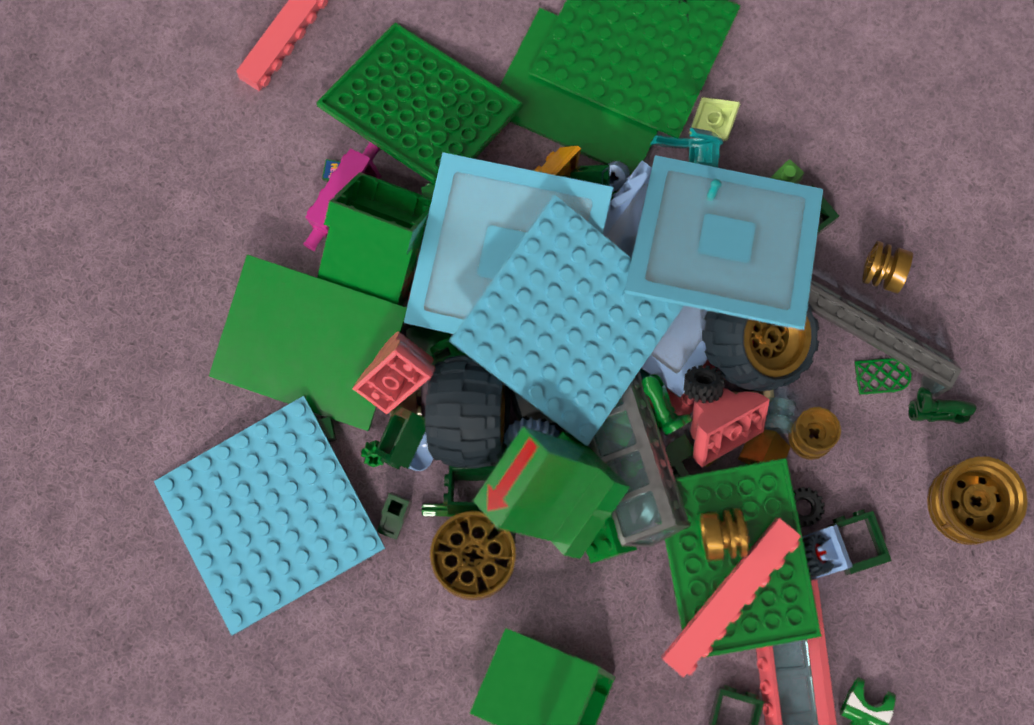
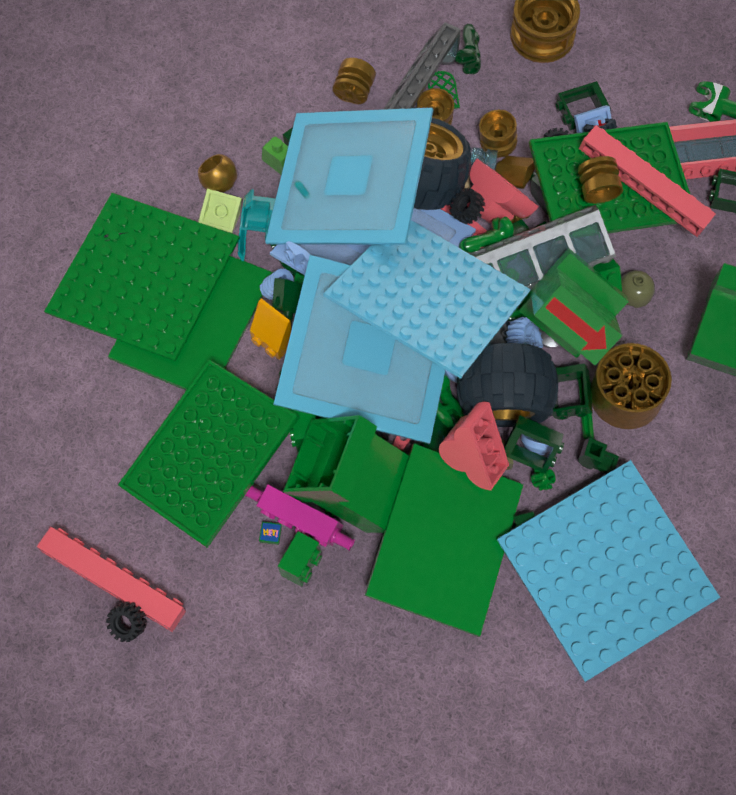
camera: 85 degrees left, 10 degrees down
(246, 31) = (118, 627): none -> black tyre
(294, 194) = (300, 559): none -> green brick
(595, 581) = (638, 288): none -> olive cylinder
(758, 113) = (217, 173): none -> pearl gold wheel
(851, 349) = (441, 103): none -> pearl gold wheel

